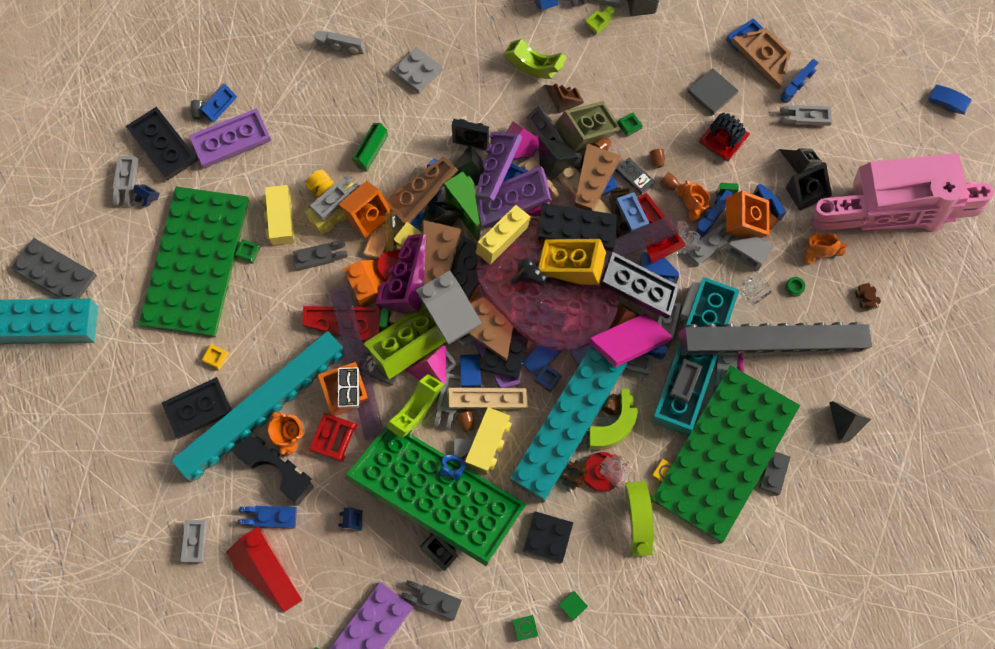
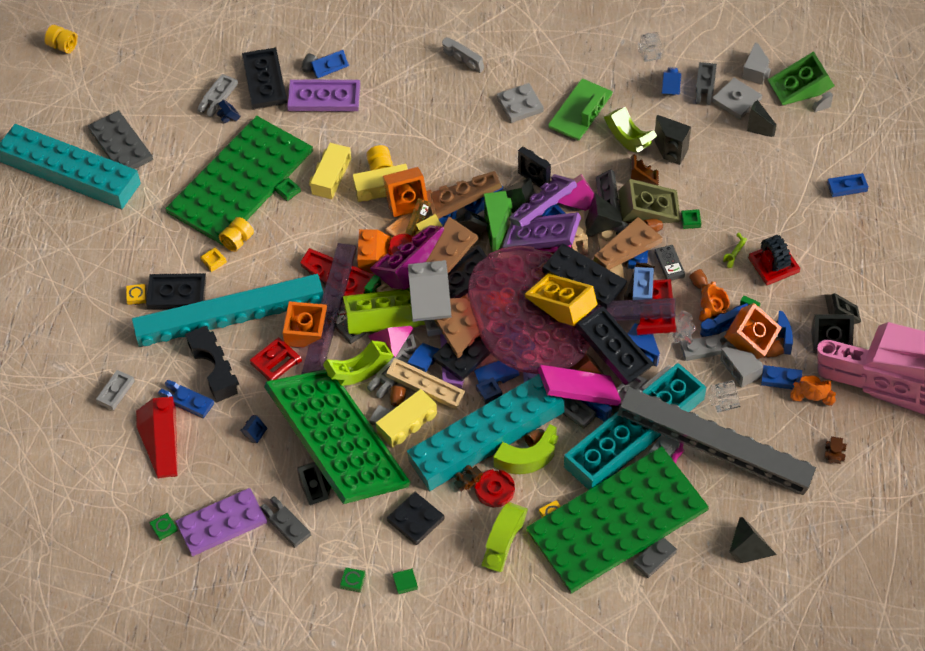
camera: 30 degrees right, 15 degrees down
(158, 428) = (136, 294): none -> yellow tile
(224, 322) = (237, 232): none -> yellow wheel
(285, 432) = (236, 337): orange hair -> none
(319, 255) = (347, 216): dark grey hinge -> none
(329, 201) = (374, 173): light grey hinge -> none
(348, 387) = (308, 320): tile -> none
(370, 146) = (441, 147): green piece -> none
(444, 471) = (353, 421): blue piece -> none
(476, 55) = (580, 109): none -> bright green bracket
(502, 234) = (509, 251): light yellow brick -> none
(529, 273) = (514, 291): black animal -> none
(578, 51) = (672, 139): none -> pearl dark grey slope
(599, 21) = (712, 122): lime plate -> none
(616, 469) = (505, 487): clear brick -> none
(657, 157) = (699, 255): dark orange hose -> none
(684, 148) = (731, 257): none -> lime piece
(685, 381) = (609, 438): dark grey tile -> none
(712, 91) = (788, 220): dark grey tile -> none
(765, 53) = (856, 207): medium nougat wing -> none
(788, 246) = (780, 377): none -> blue plate
(795, 286) = (769, 413): green tile -> none
(799, 81) = (877, 242): blue hinge -> none
(806, 115) = (867, 274): light grey hinge -> none

